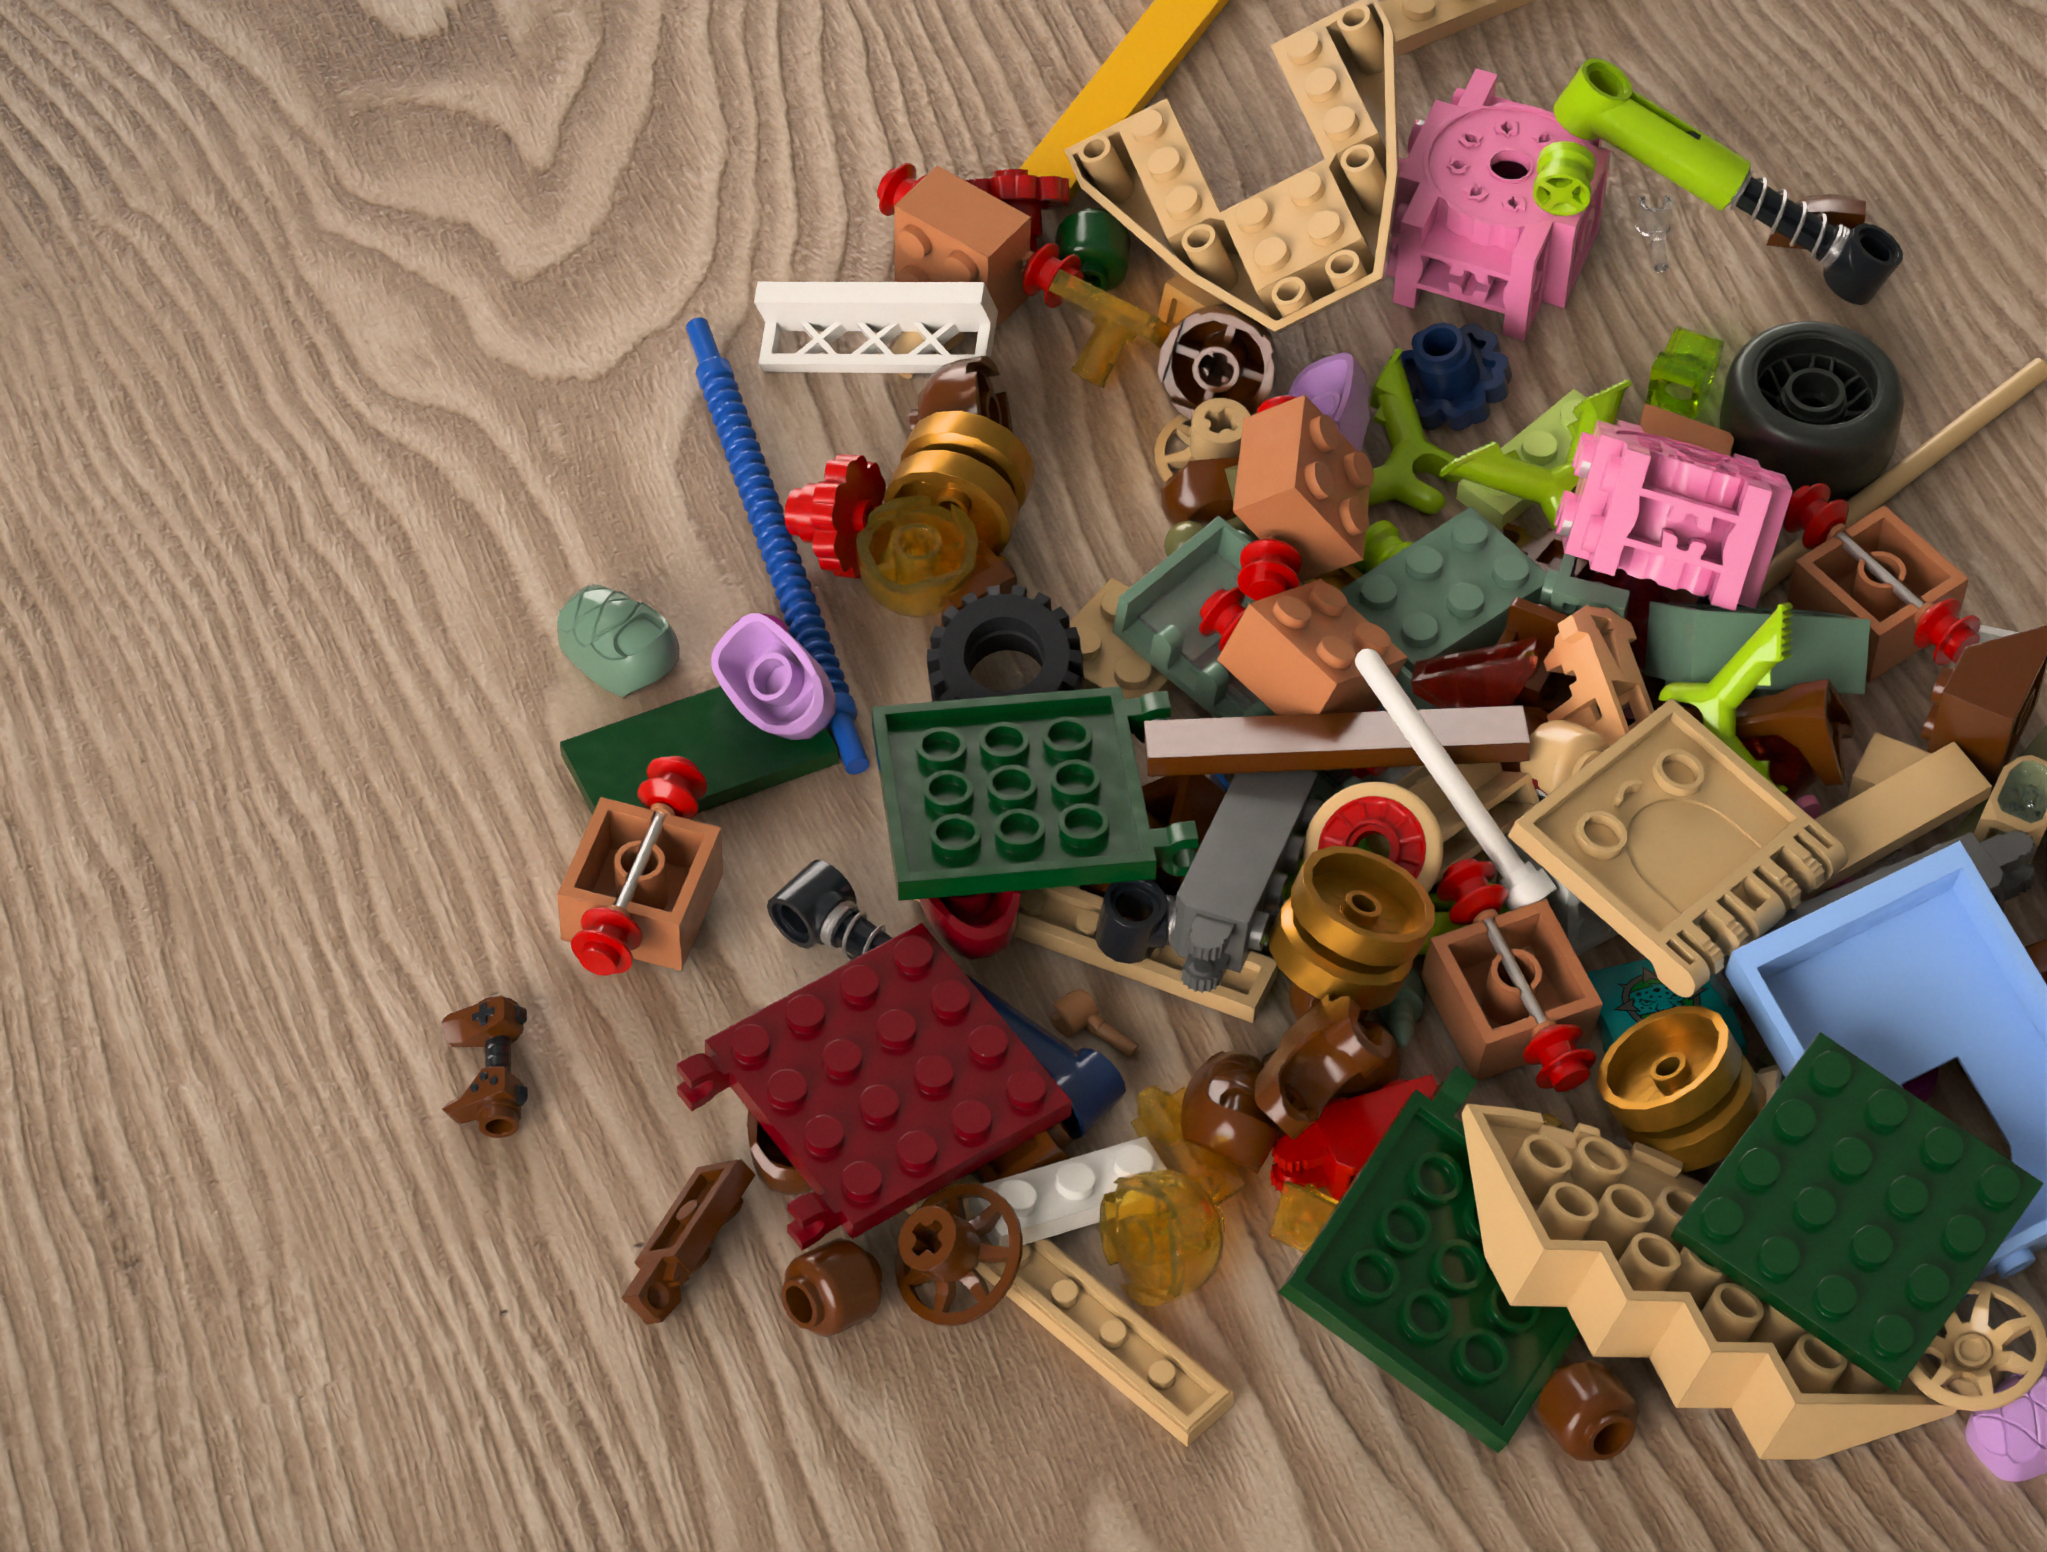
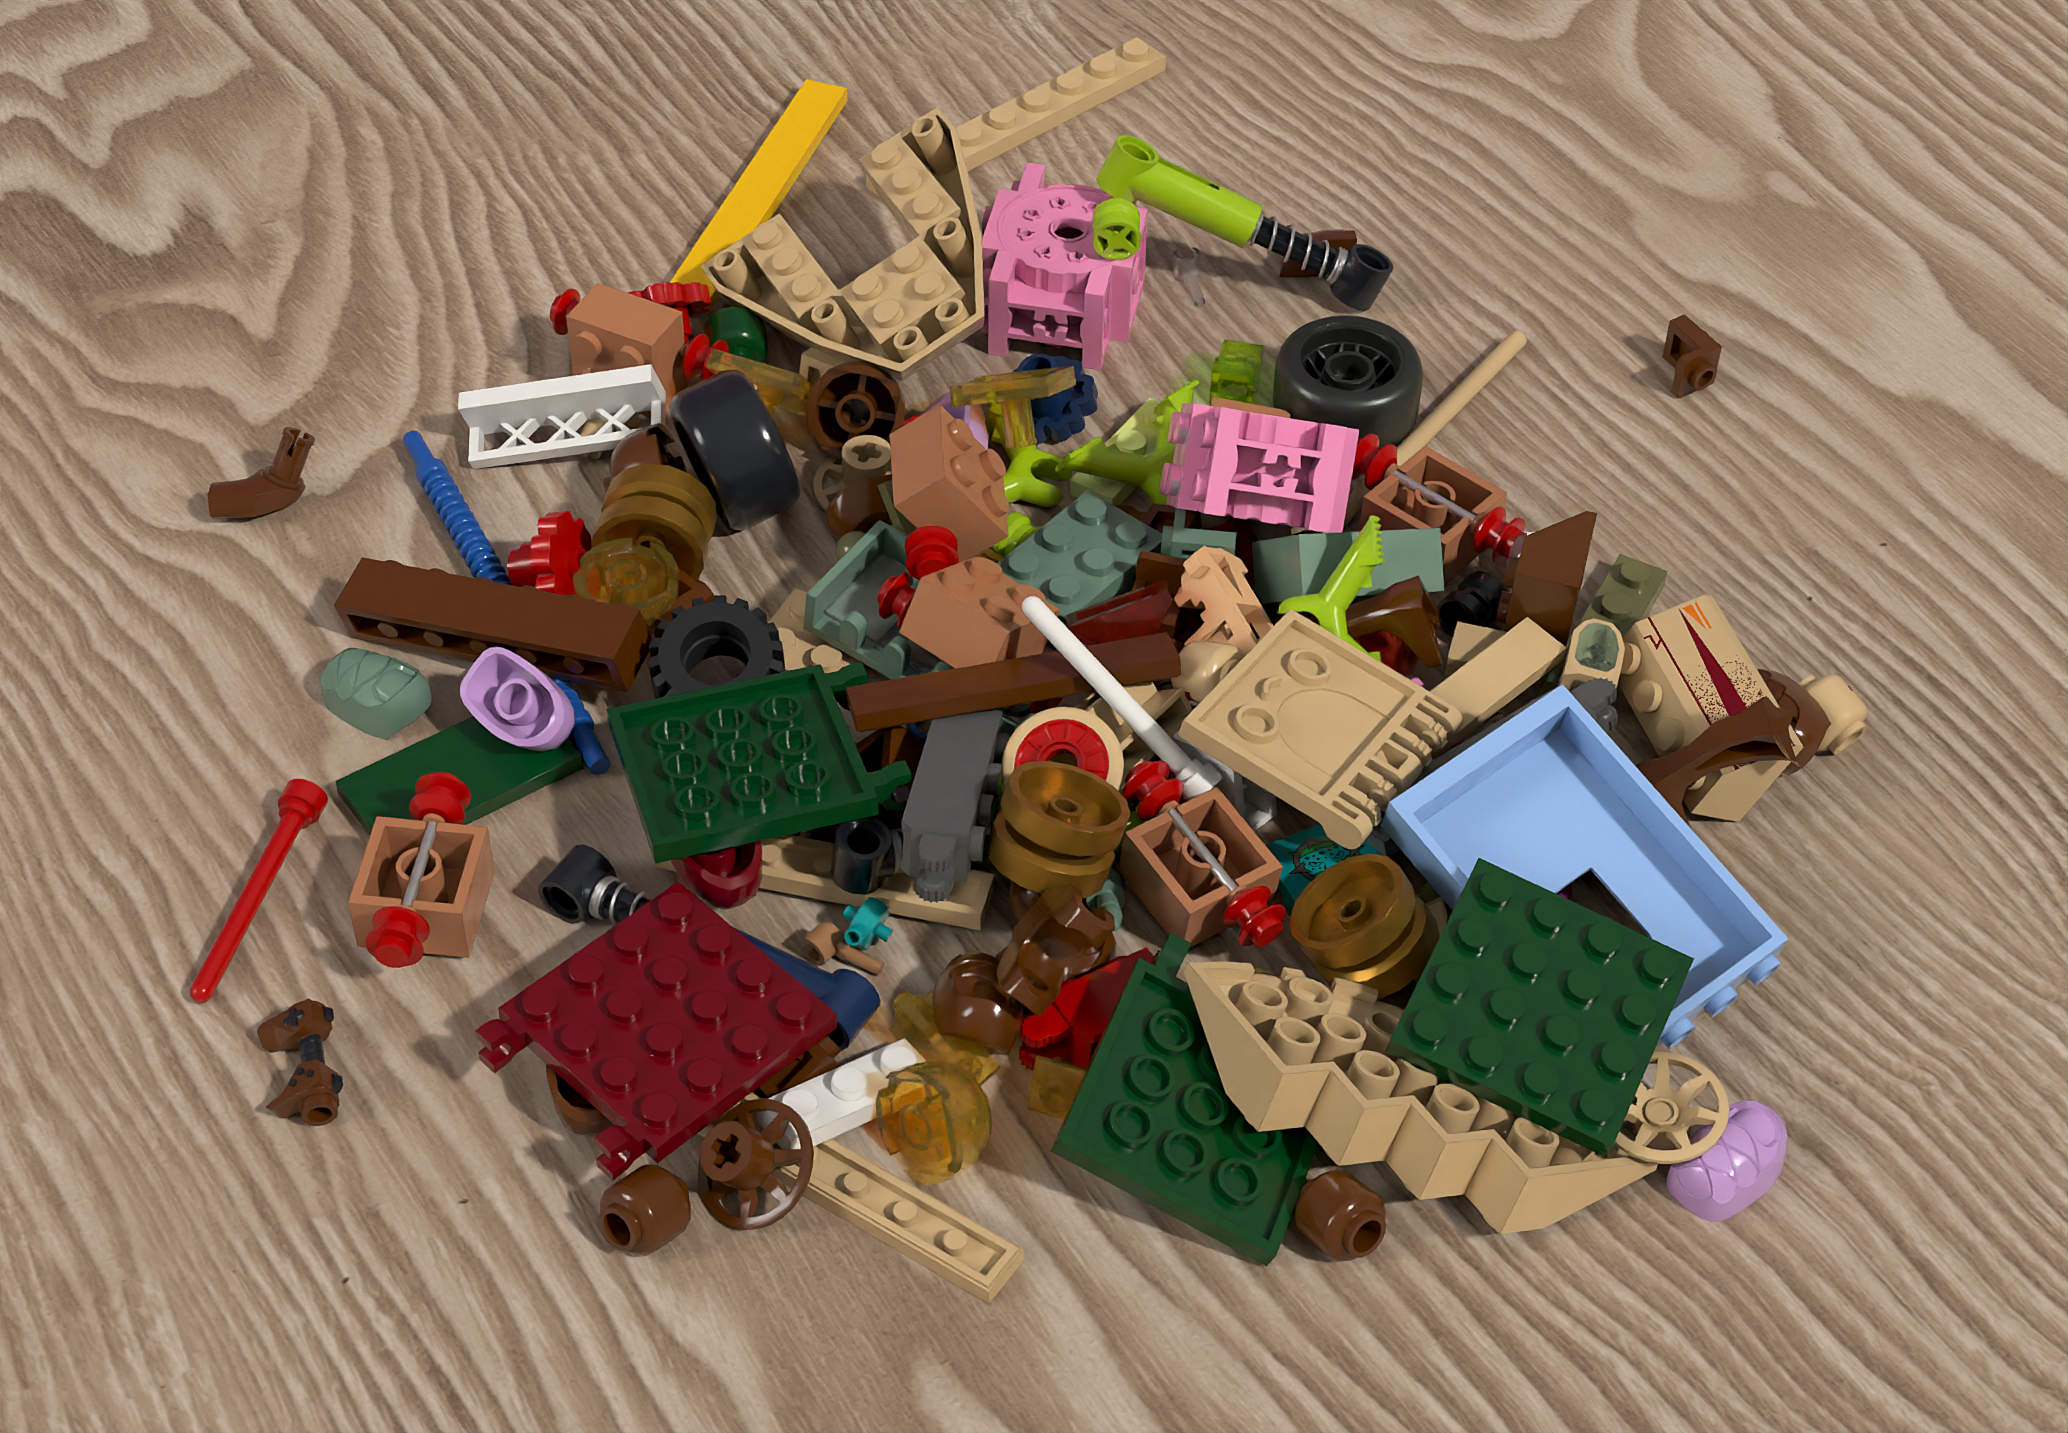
camera: 10 degrees left, 5 degrees down
(517, 766) = (298, 808): none -> red piece
(526, 367) = (267, 488): none -> reddish brown arm
(685, 1237) = (503, 1187): reddish brown hinge -> none
(747, 570) = (468, 615): none -> reddish brown brick
(1067, 399) = (735, 449): none -> black wheel
(1126, 998) = (867, 923): none -> teal piece
(1405, 372) = (1014, 394): none -> clear yellow tile
(1900, 710) = (1473, 602): none -> black wheel

